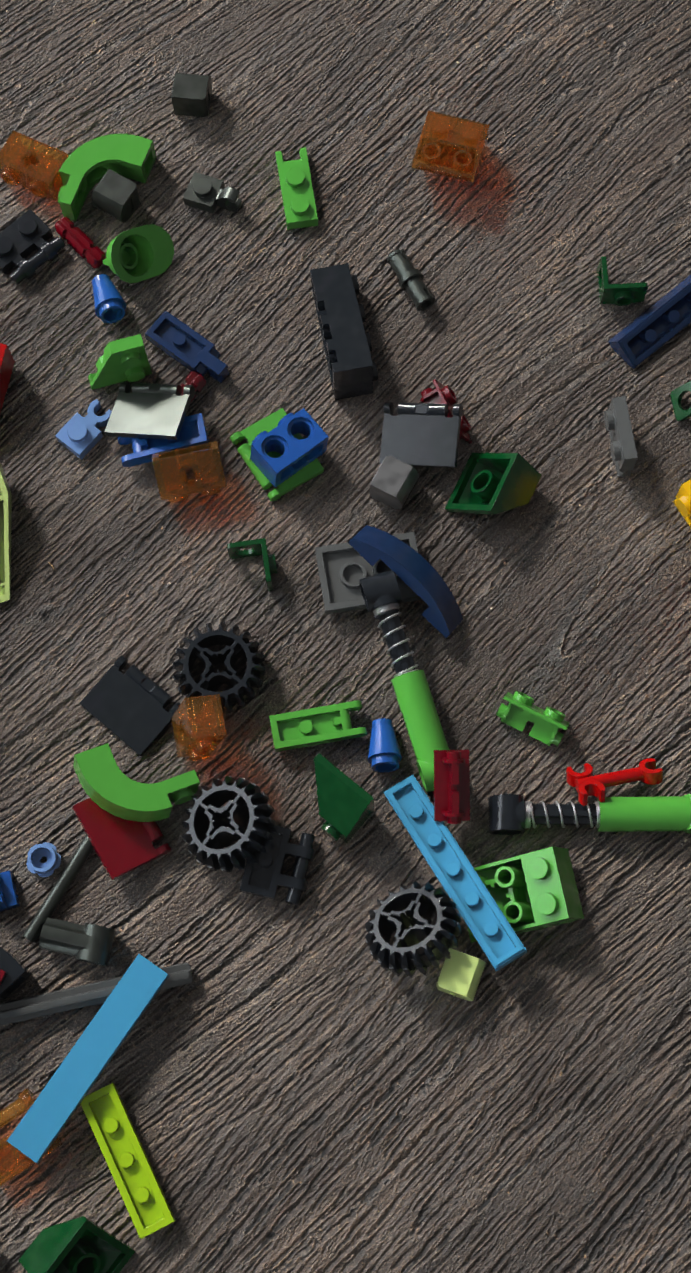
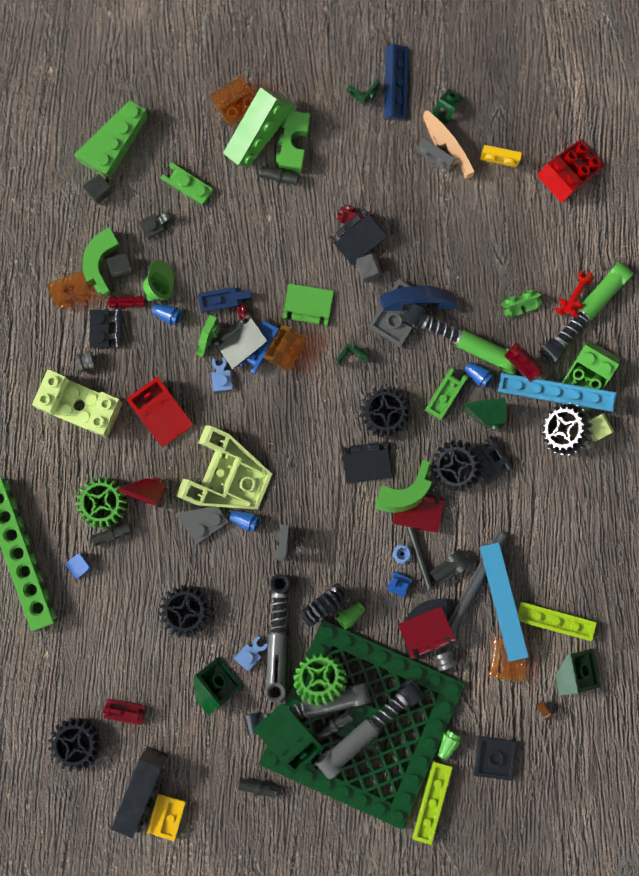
camera: 50 degrees left, 10 degrees up
(198, 726) = (407, 442): clear orange brick -> none
(269, 60) = (109, 145): none -> bright green wedge
(295, 452) = (316, 297): blue brick -> none
(343, 332) = (278, 226): black wedge -> none
(445, 195) = (258, 126): none -> wedge
(489, 242) = (295, 125): none -> bright green arch
(493, 484) = (407, 228): dark green slope -> none
(652, 435) = (445, 140): none -> light nougat slope

